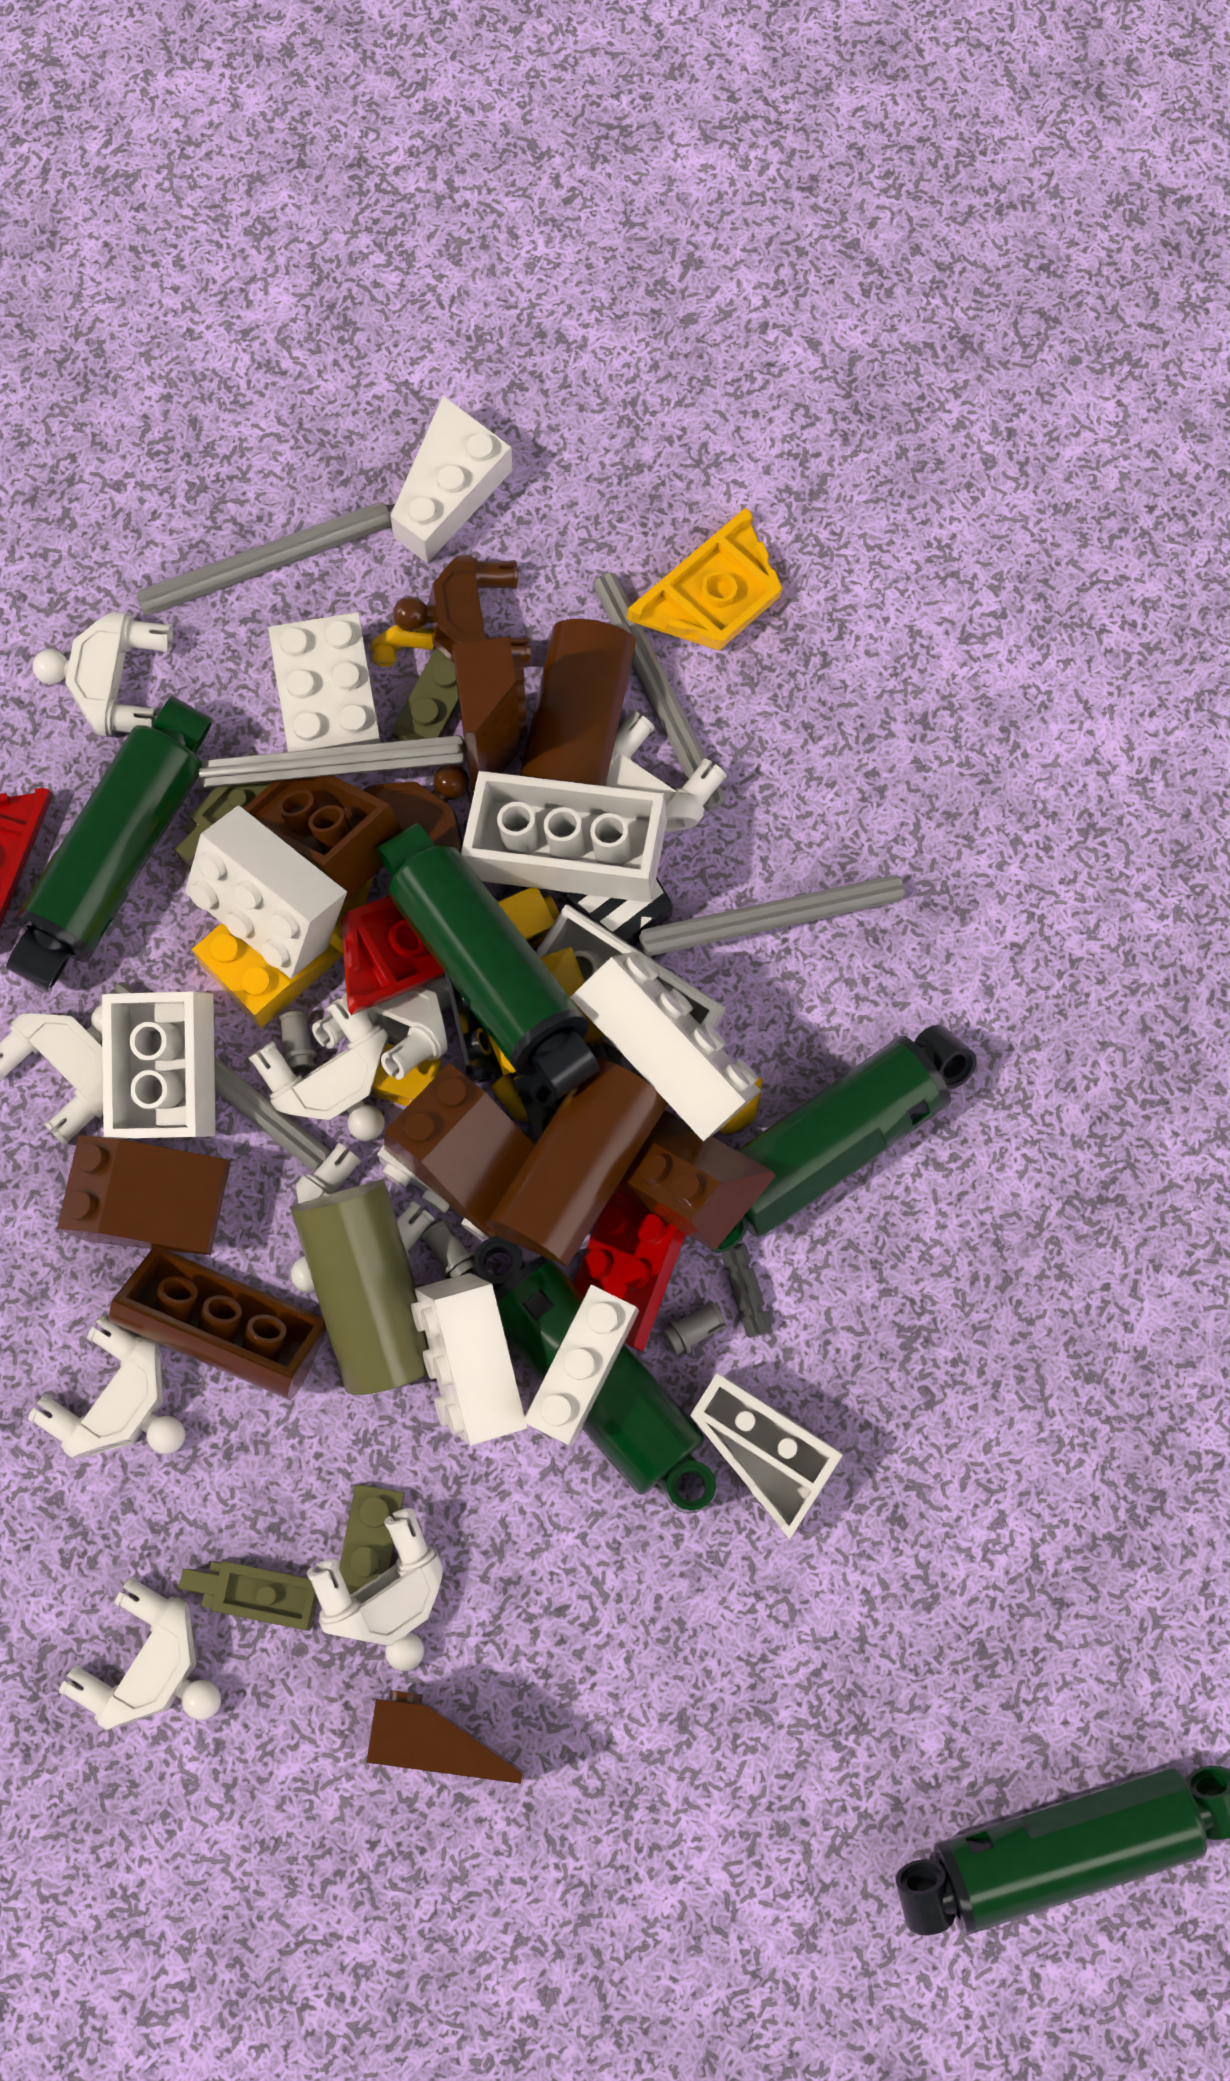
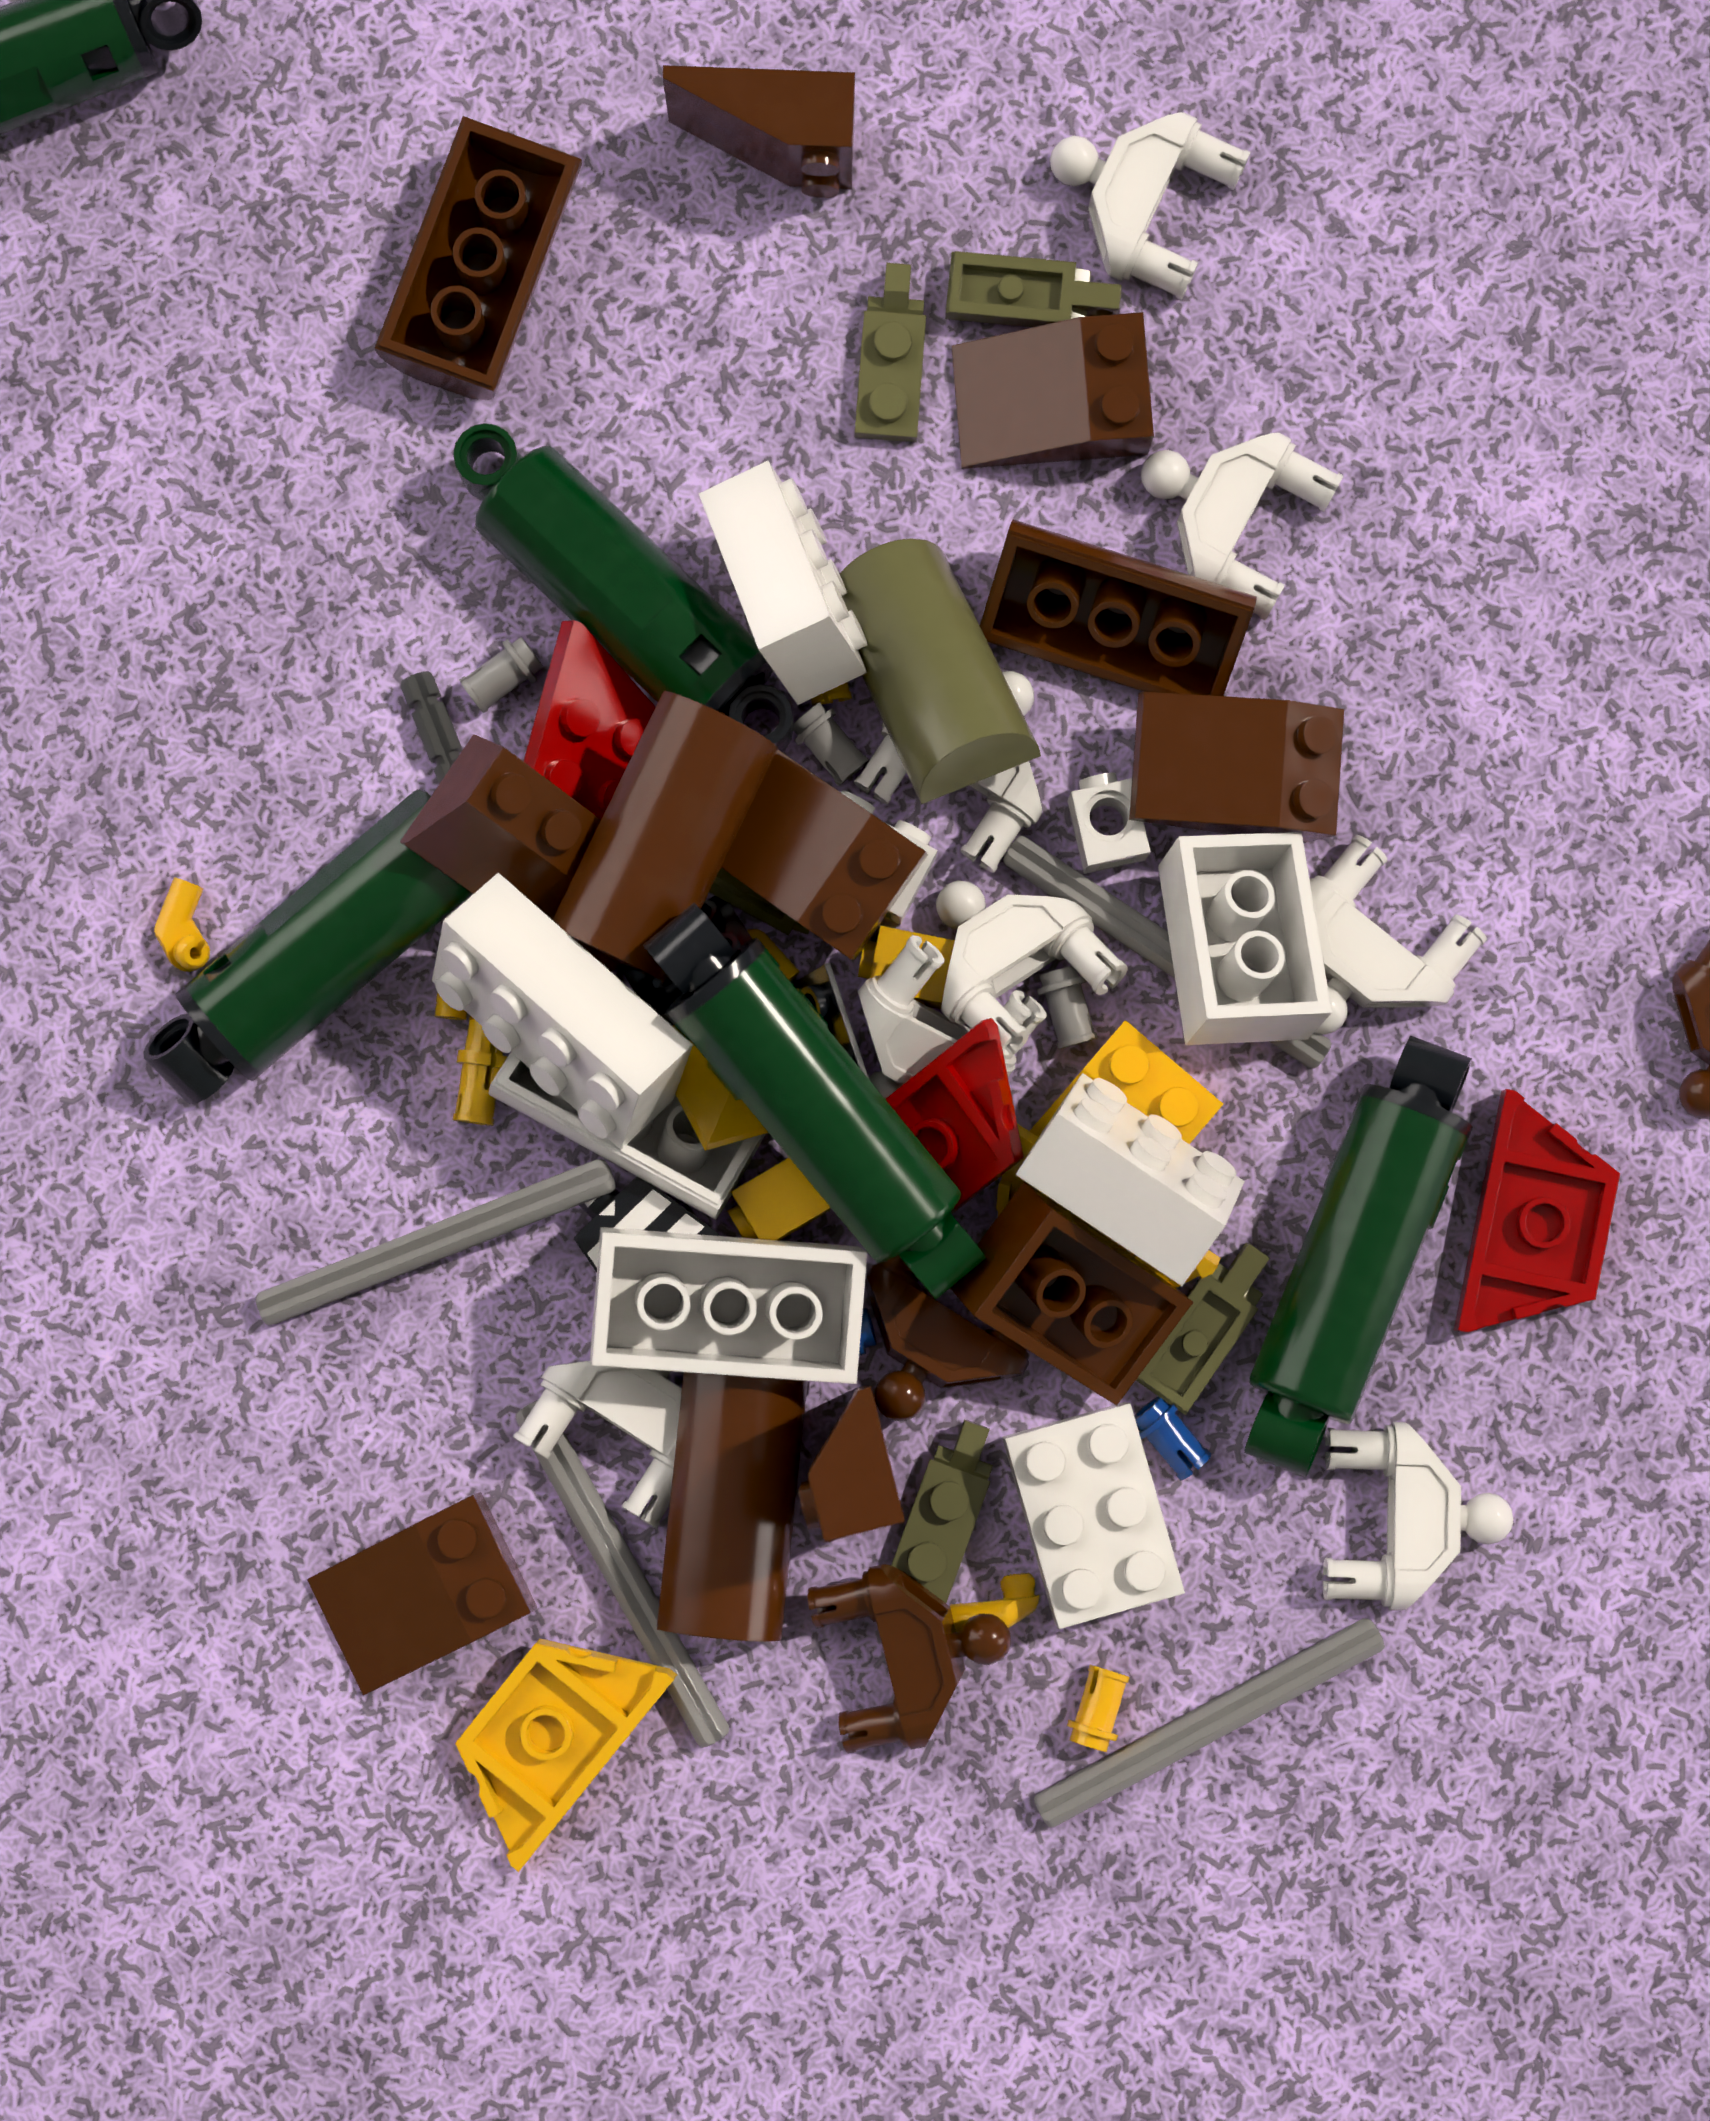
camera: 175 degrees right, 10 degrees up
(243, 1150) = (1100, 850): none -> white brick
(243, 1507) = (1054, 393): none -> reddish brown slope
(261, 735) = (1170, 1436): none -> blue pin
(333, 761) = (1063, 1388): light grey axle -> none
(339, 571) = (1098, 1709): none -> yellow pin
(390, 1603) = (853, 284): white connector -> none
(448, 480) = (956, 1866): white wedge -> none
(581, 1365) = (633, 567): white brick -> none
(684, 1655) = (477, 260): none -> reddish brown brick
(735, 1026) = (479, 1067): none -> yellow pin
(767, 1449) = (392, 520): white wedge -> none
(795, 687) = (422, 1593): none -> reddish brown slope
(949, 1160) = (177, 930): none -> yellow arm

